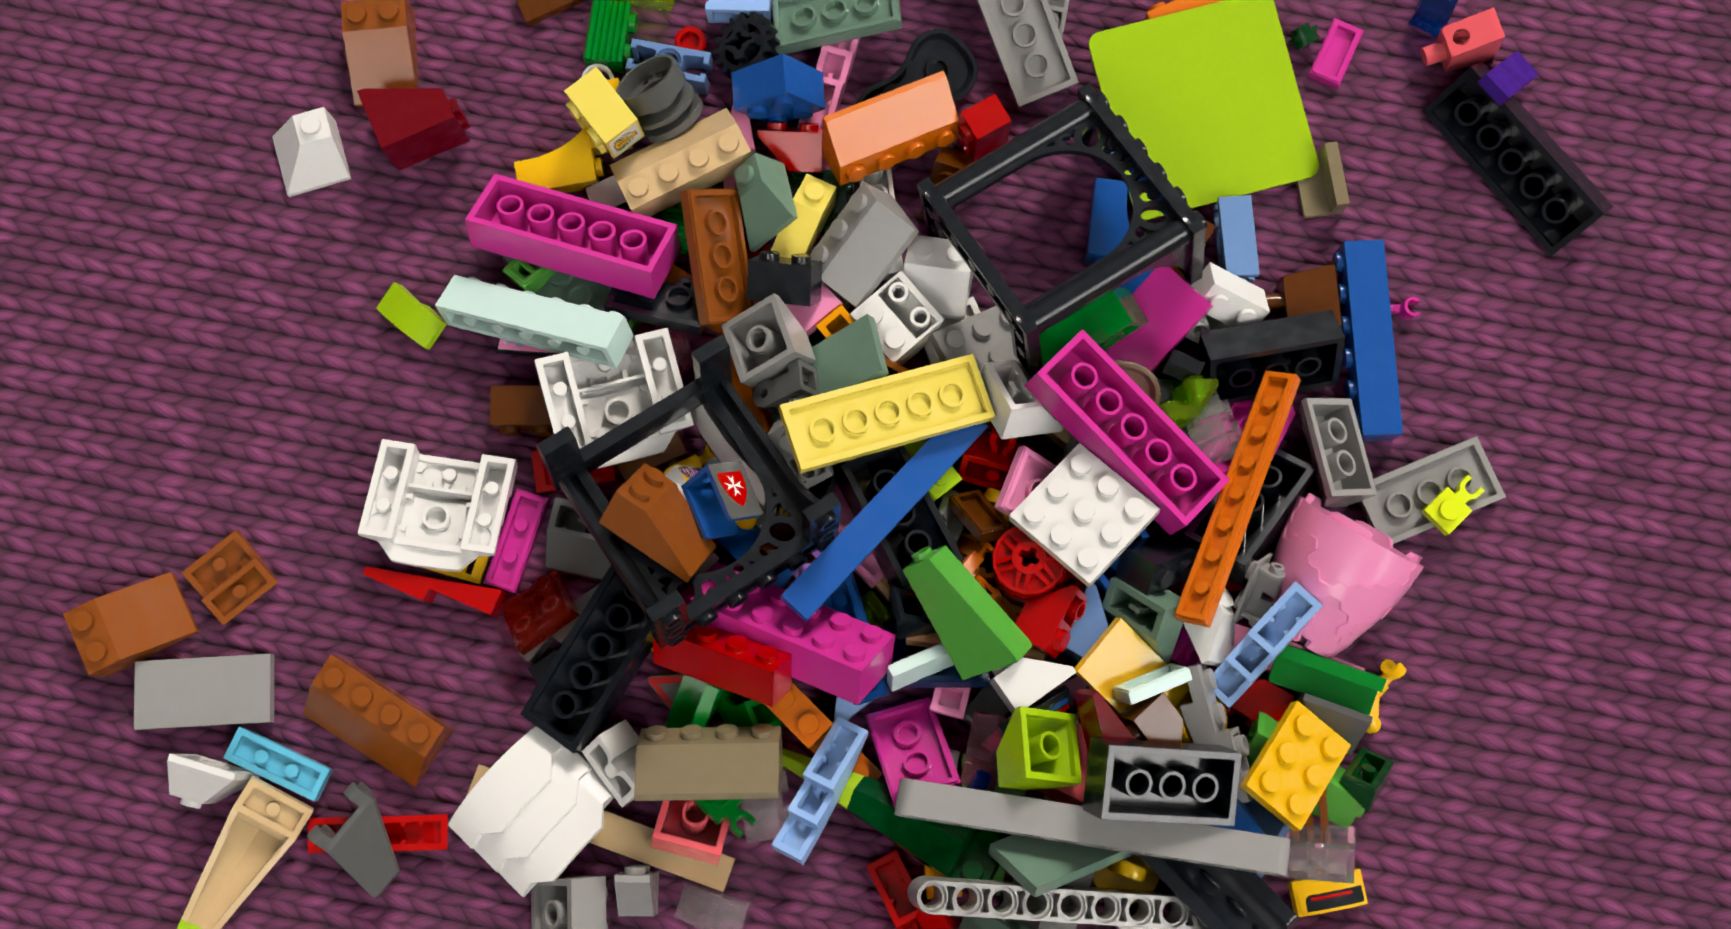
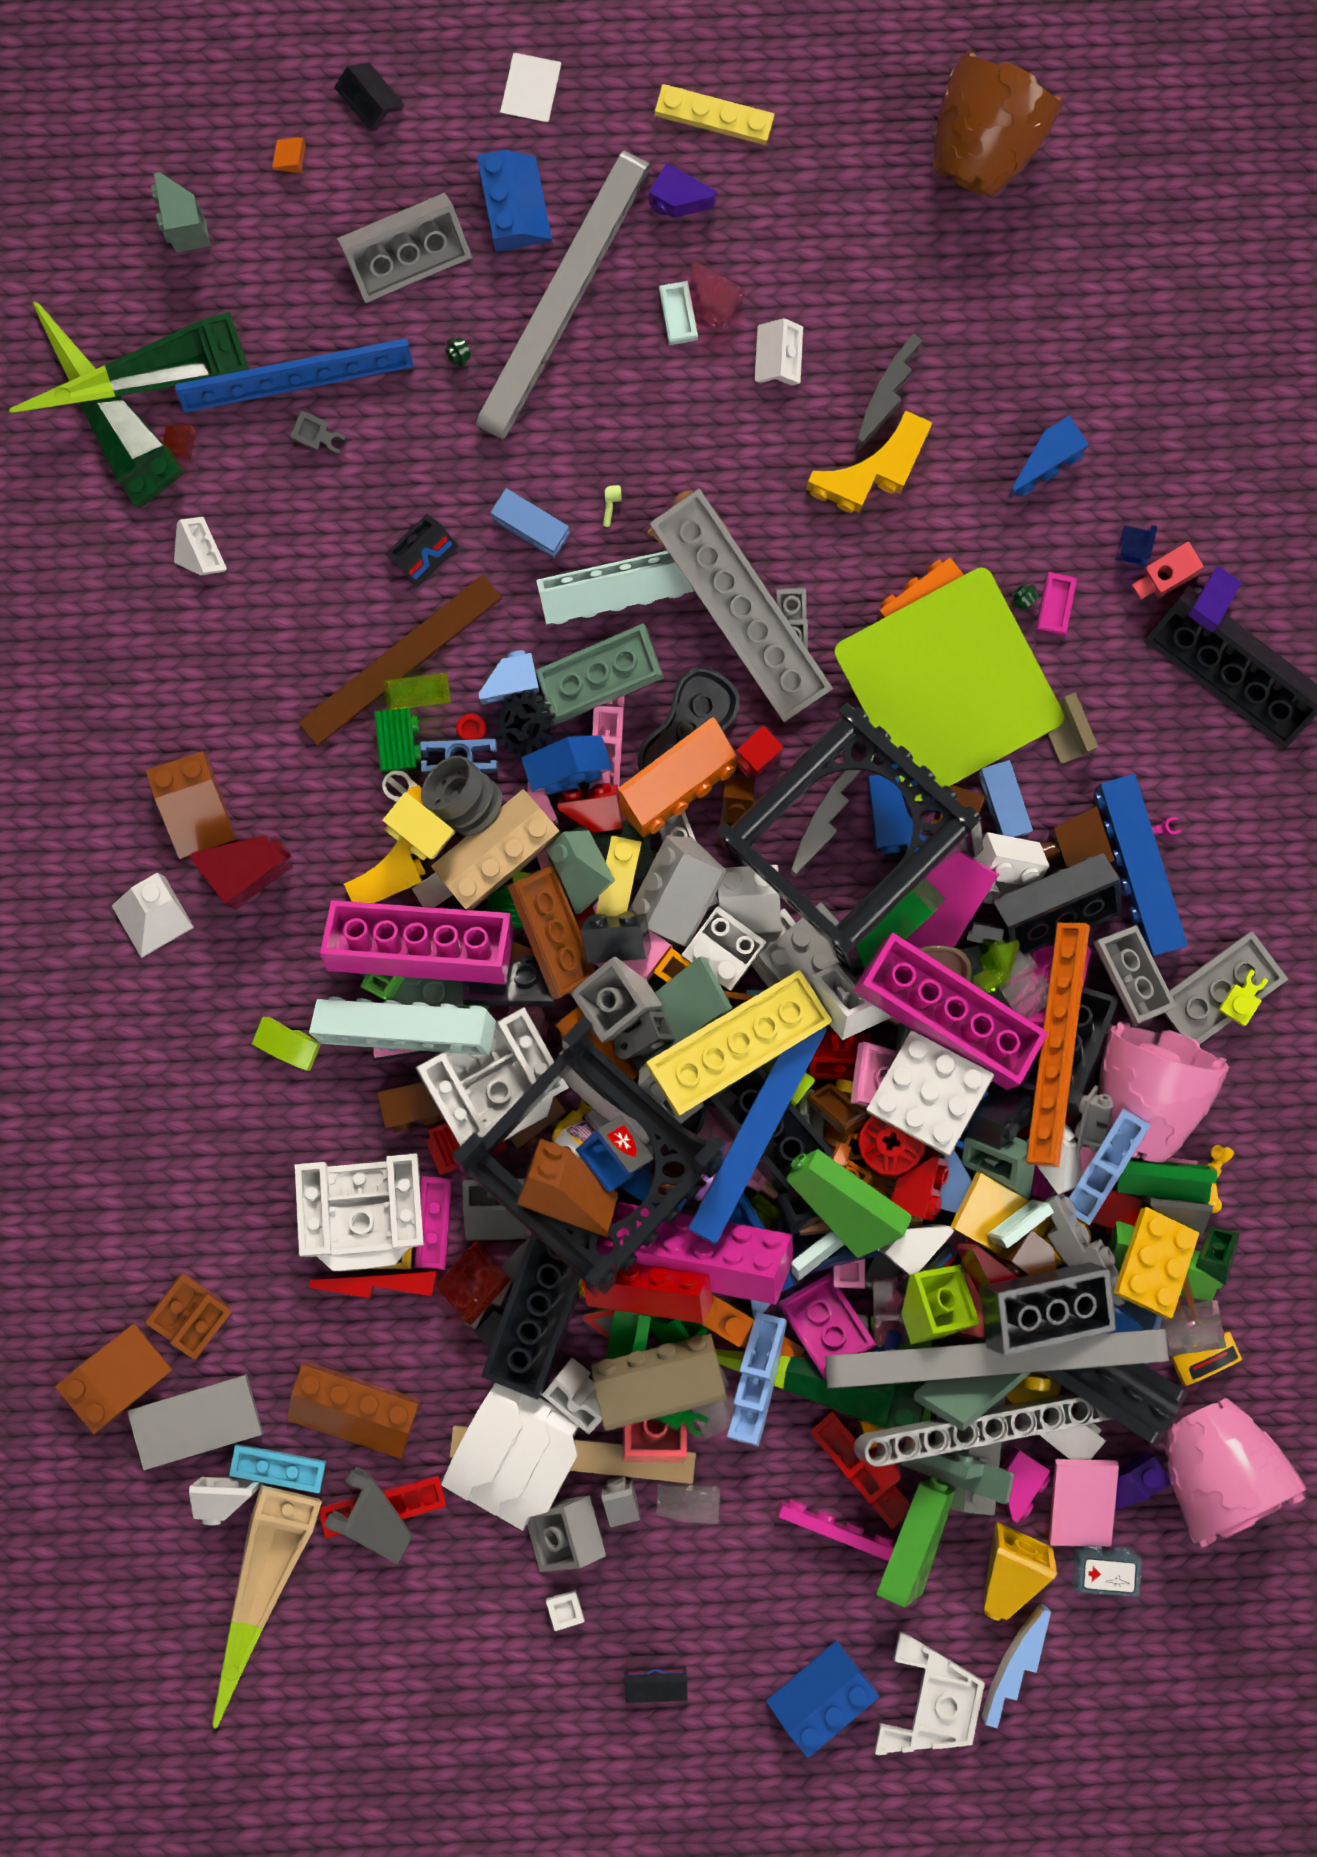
camera: 20 degrees left, 5 degrees up
(1031, 222) = (820, 829): none -> light grey slope

